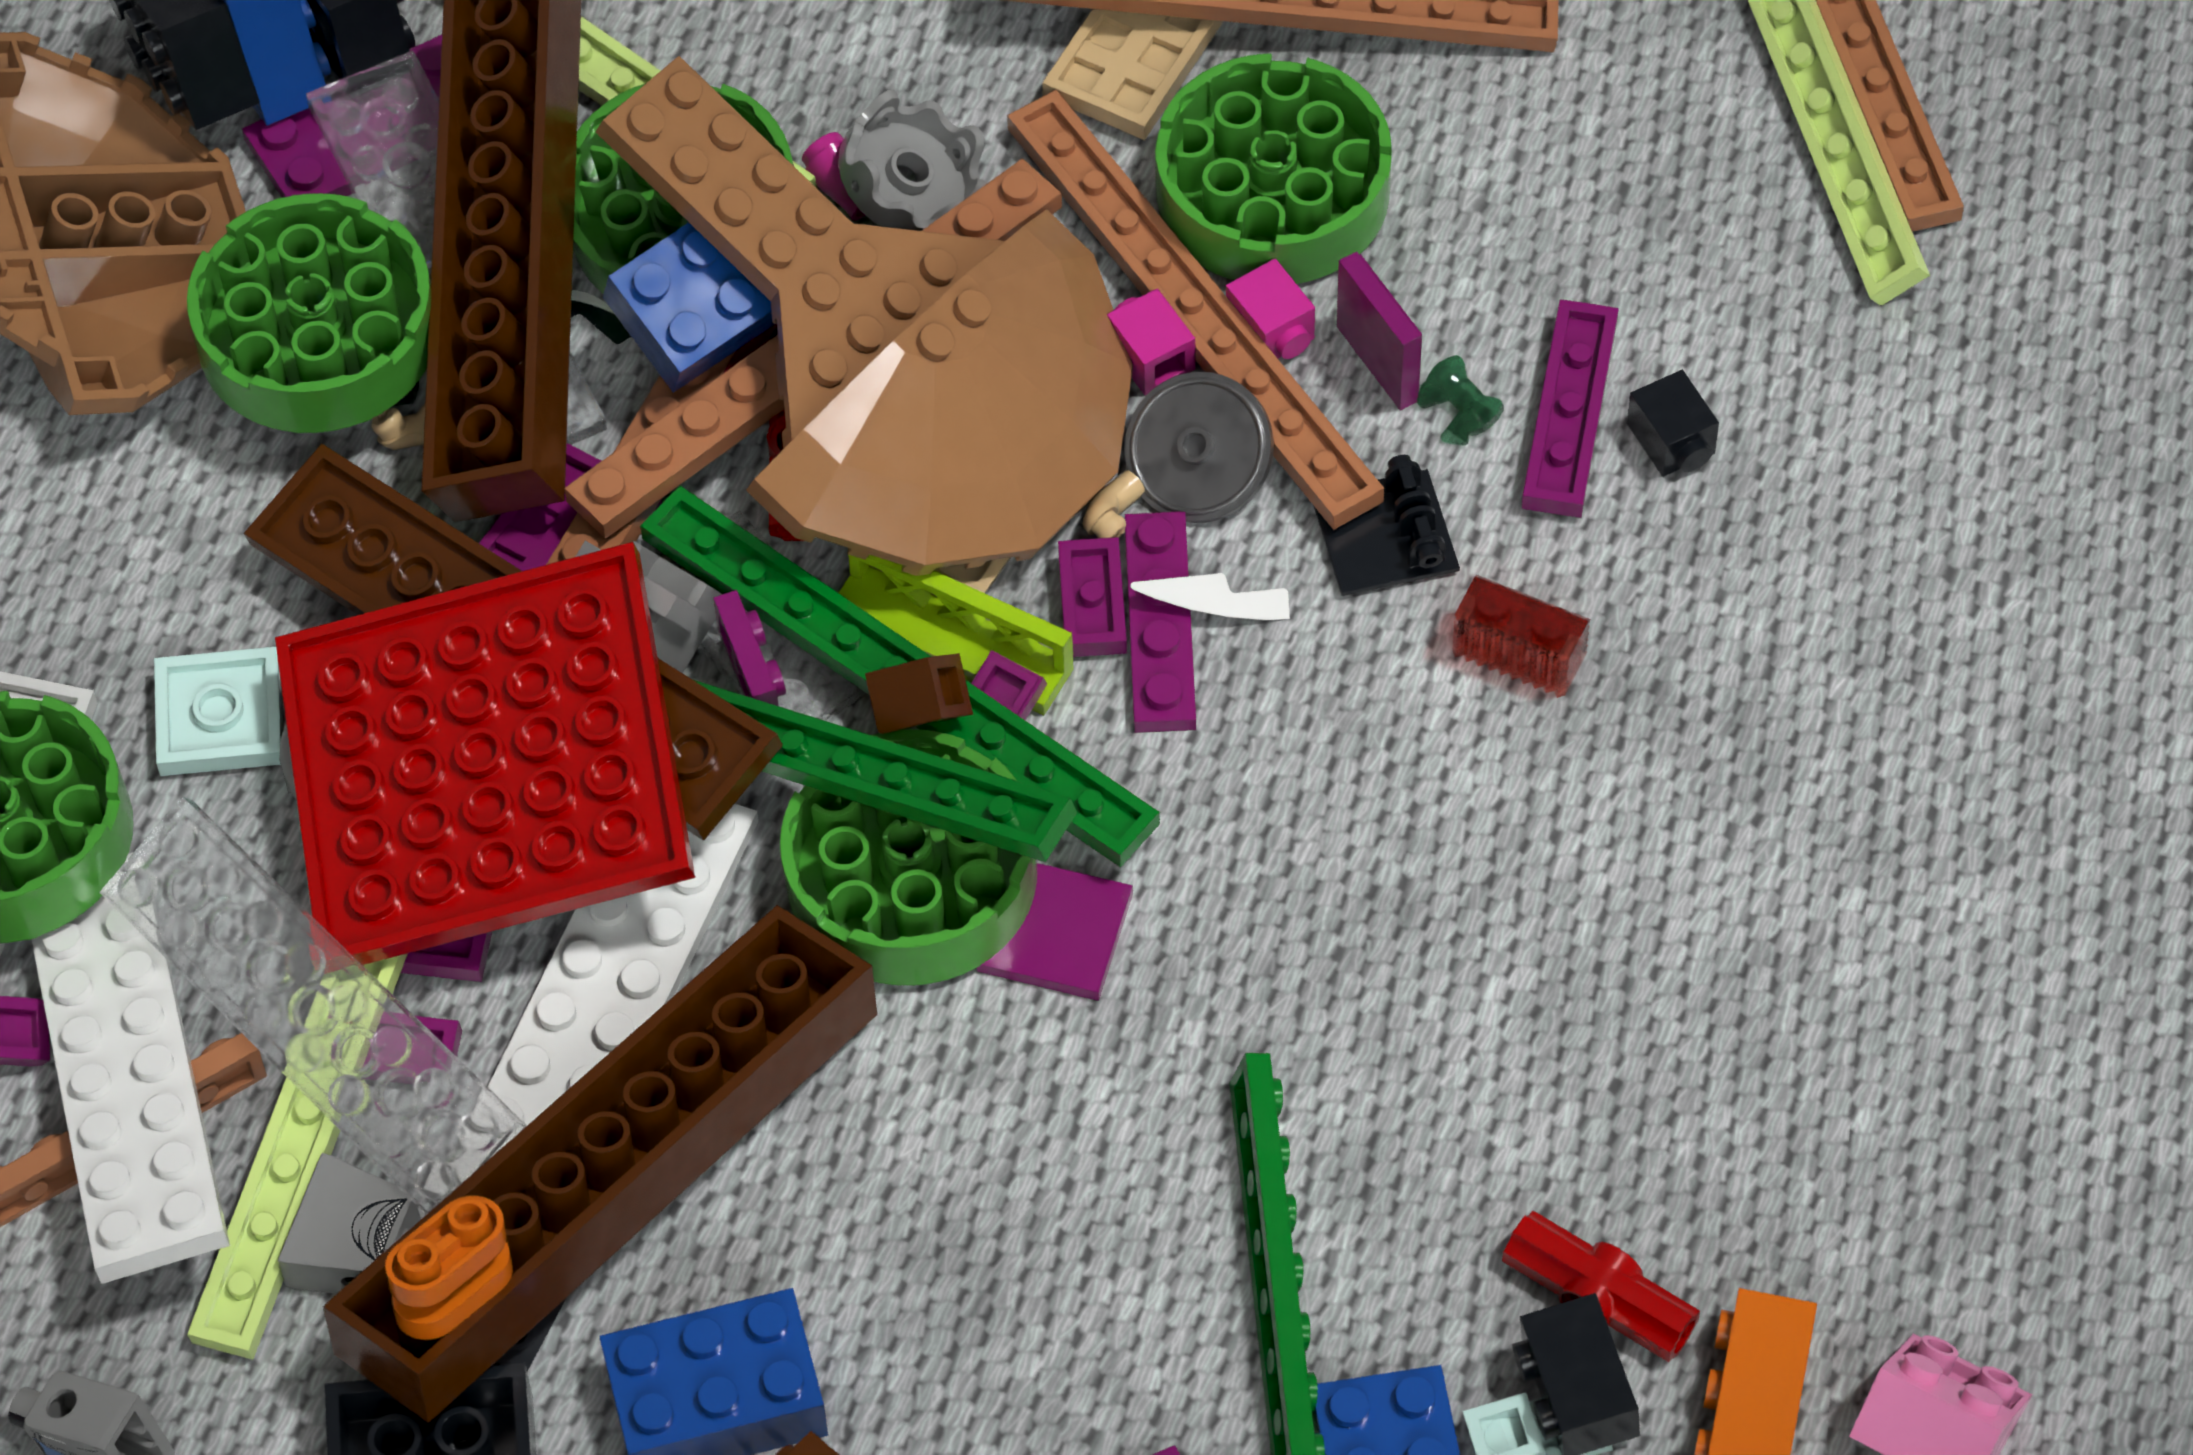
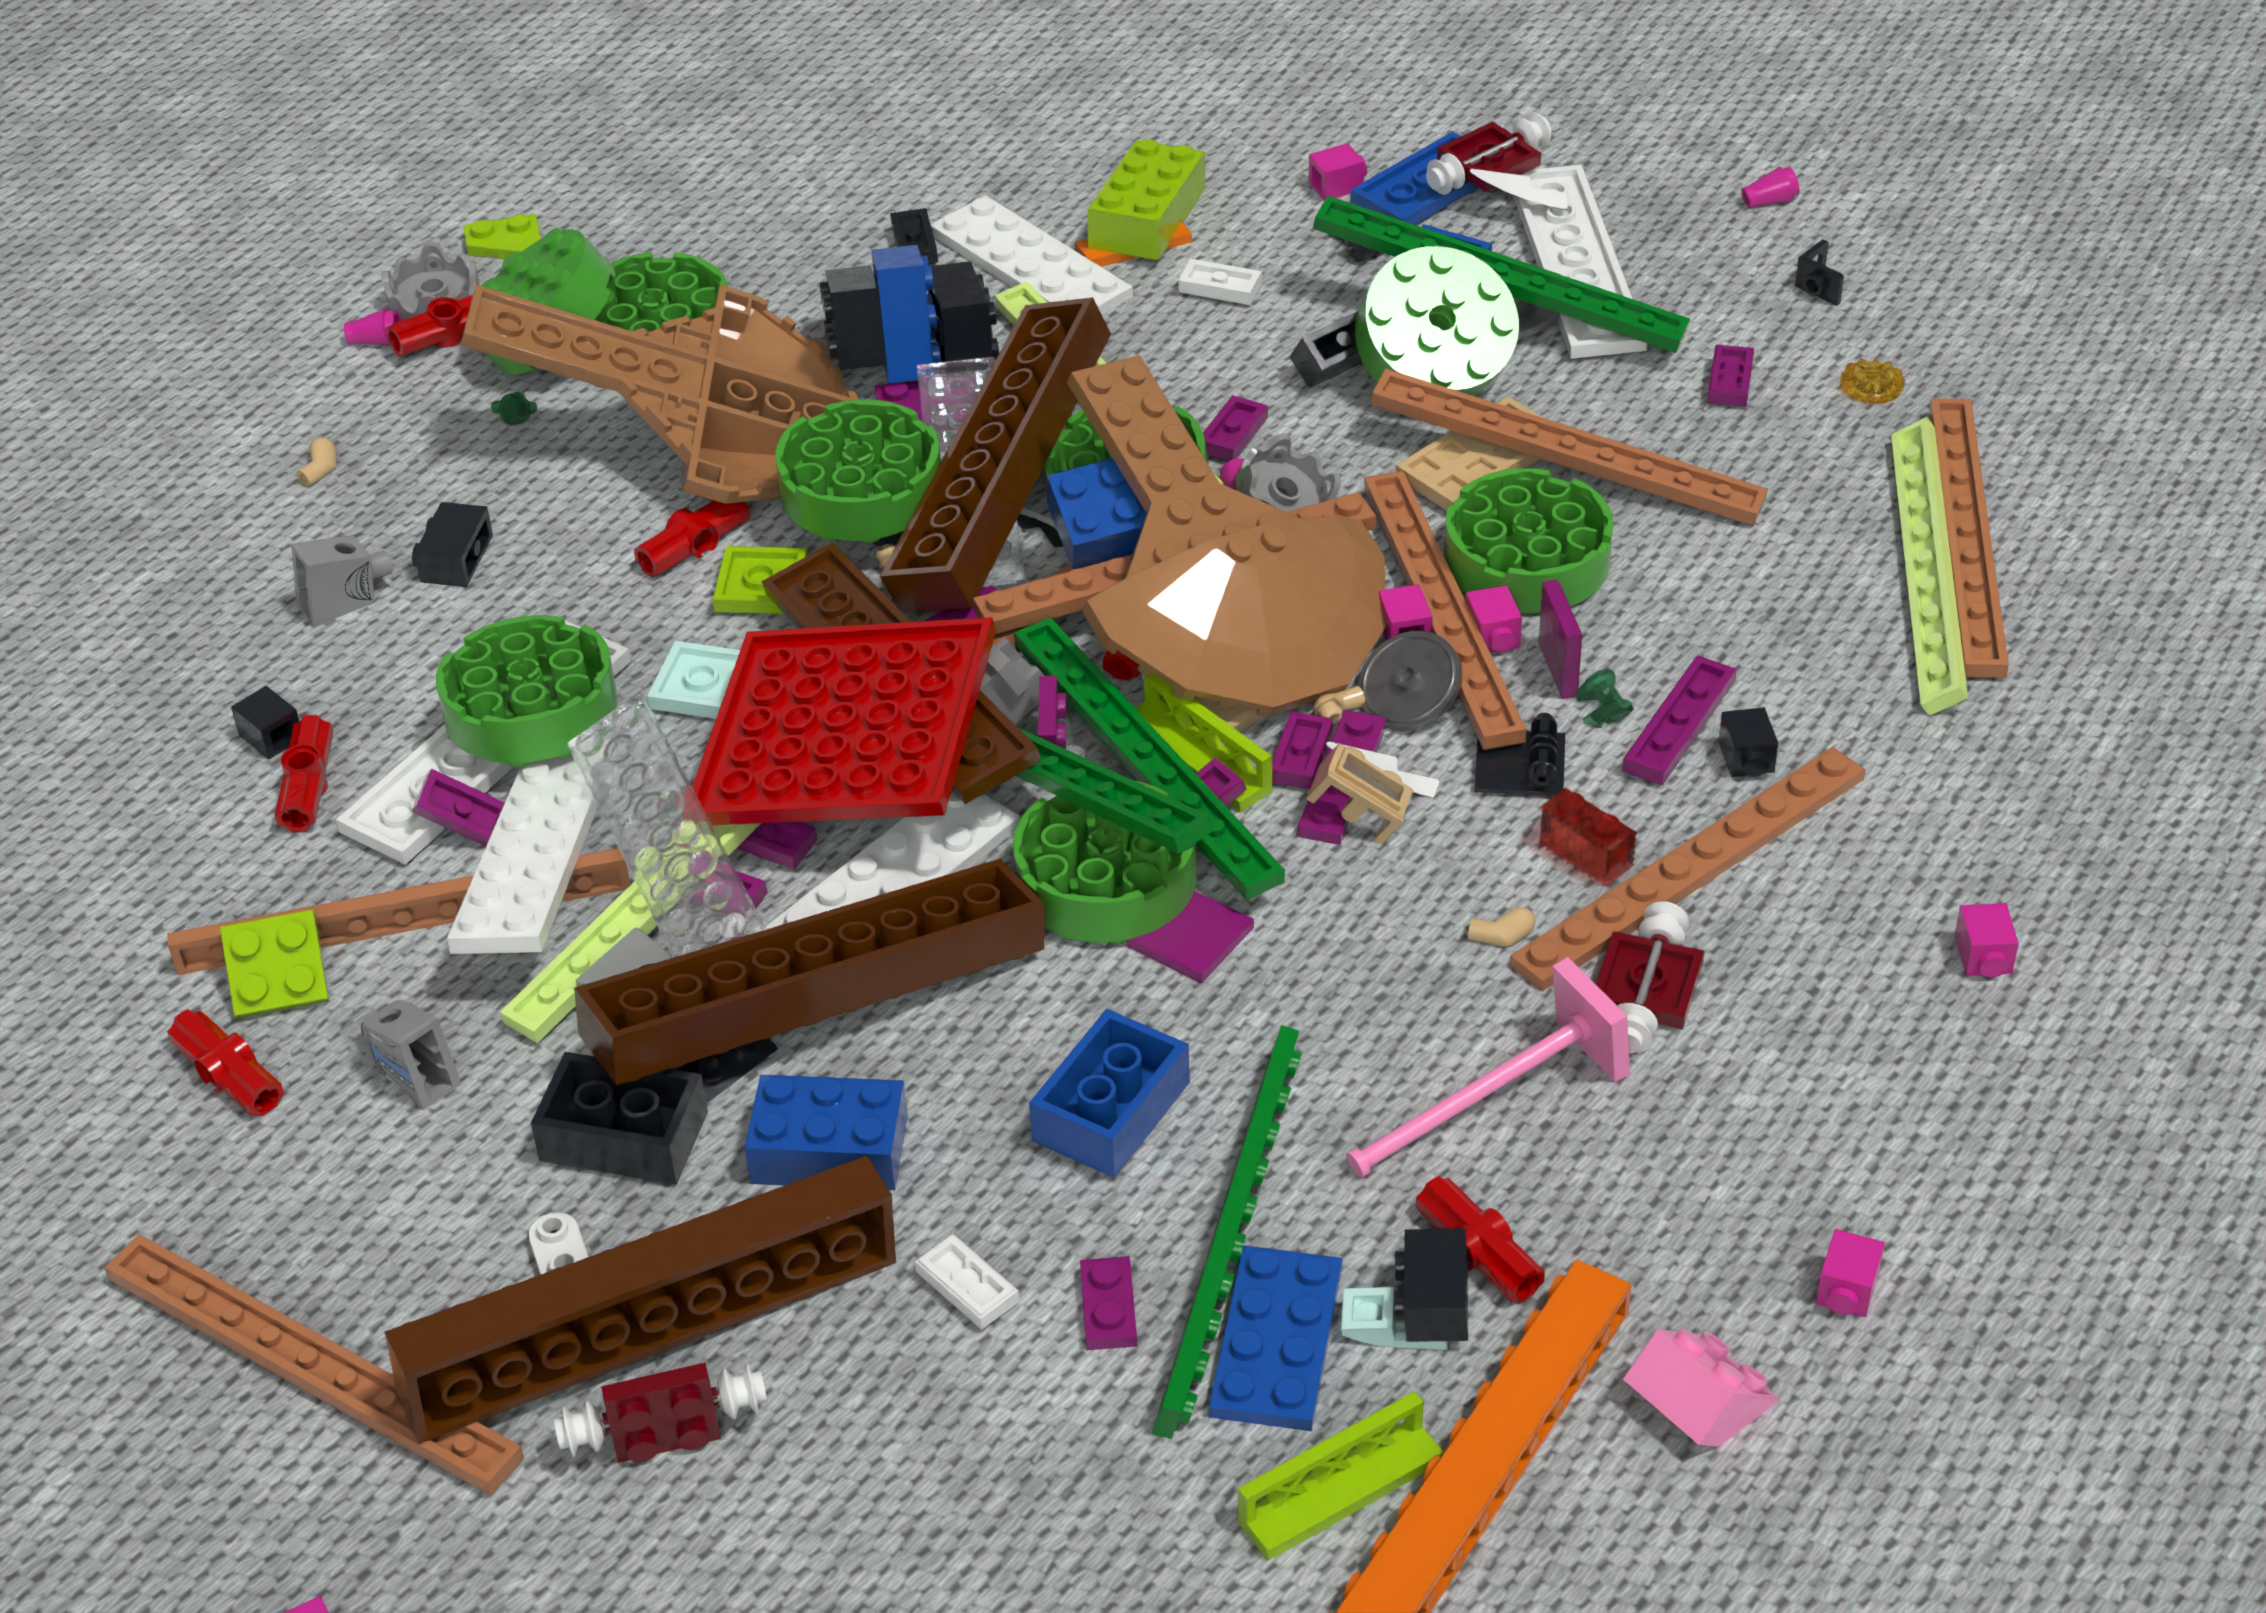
camera: 20 degrees right, 15 degrees down
(85, 470) = (689, 534): none -> red piece
(210, 510) = (741, 575): none -> lime plate
(449, 1267) = (661, 977): orange brick -> none
(789, 70) = (1234, 427): none -> magenta plate
(919, 693) = (1150, 753): reddish brown panel -> none
(1060, 1217) = (1110, 1092): none -> blue brick
(1212, 644) = (1366, 786): none -> tan window
(1464, 806) = (1504, 931): none -> tan arm
(1629, 931) = (1584, 1018): none -> bright pink tile
(1658, 641) = (1689, 865): none -> nougat plate
(1671, 832) = (1652, 974): none -> dark red plate
(2064, 1198) = (1850, 1273): none -> dark pink brick
(2070, 652) = (1986, 939): none -> dark pink brick

